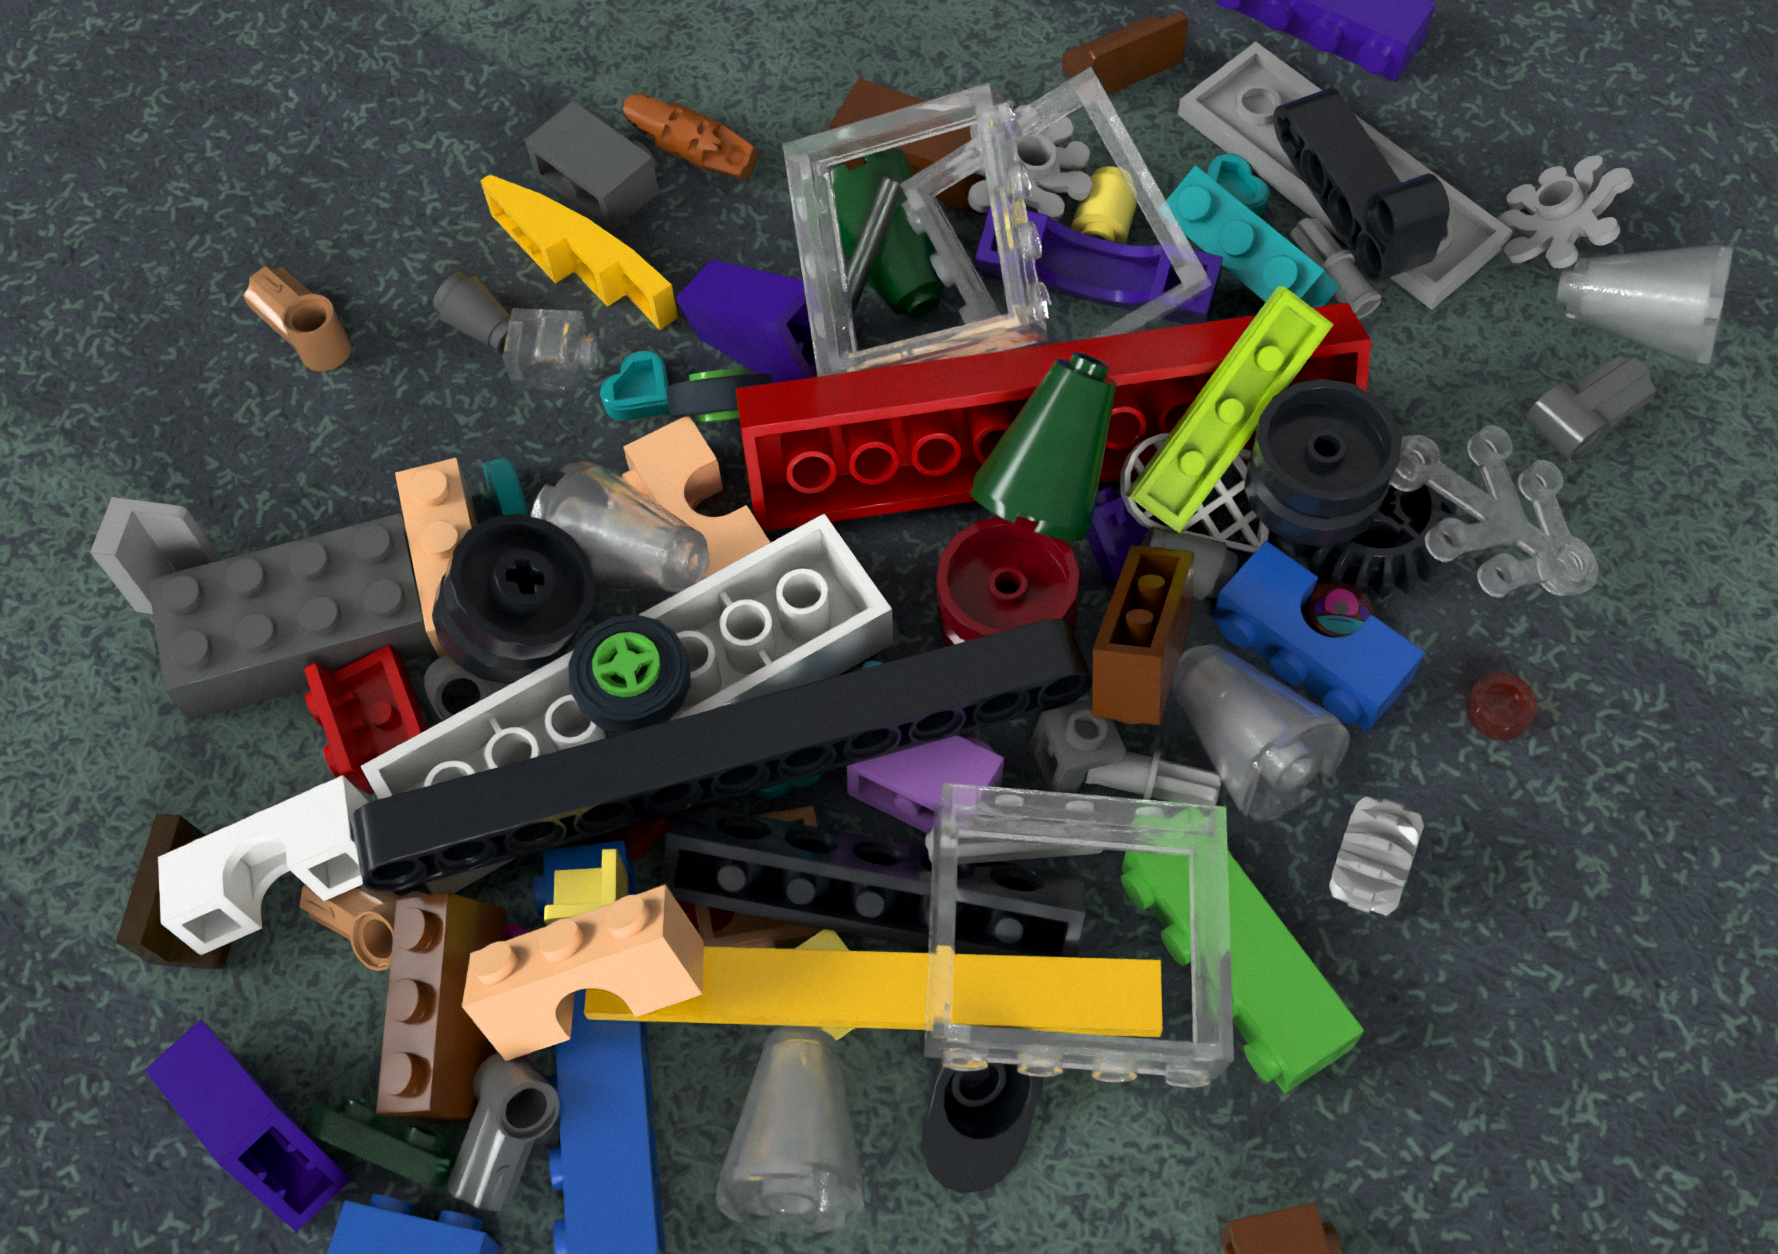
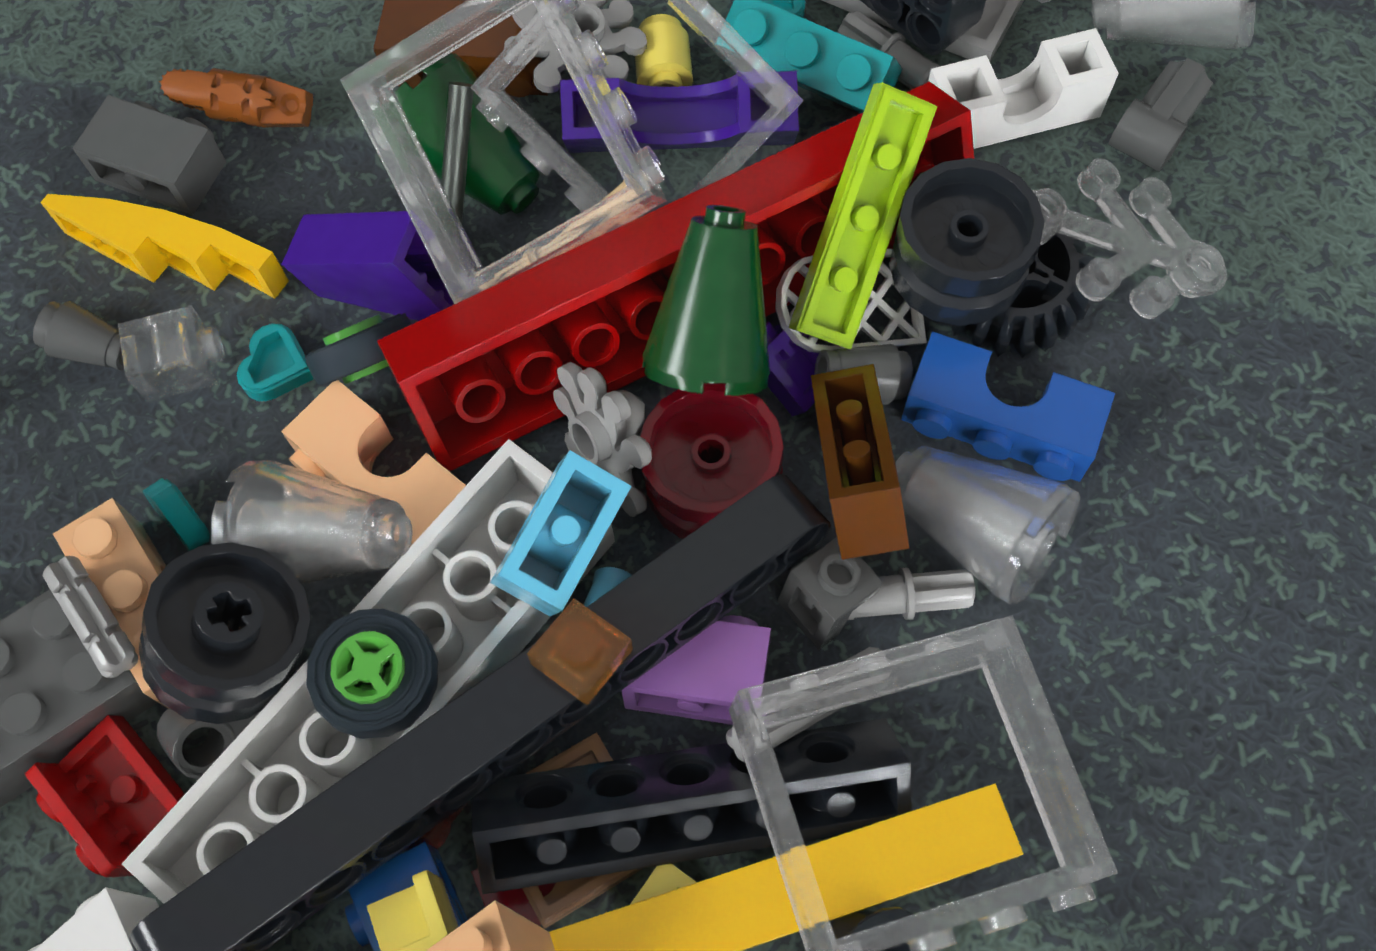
camera: 20 degrees left, 5 degrees up
(404, 550) = (90, 616): none -> light grey axle
(816, 708) = (580, 651): none -> clear orange plate
(836, 604) = (561, 534): none -> medium azure brick
(915, 537) = (604, 427): none -> light grey animal
(1278, 994) = (1126, 780): bright green brick -> none
(1338, 610) = (1016, 376): tile -> none
(1376, 855) = (1145, 603): light grey gear -> none
(1488, 351) = (1059, 88): none -> white arch
(1501, 706) = (1188, 418): clear red tile -> none

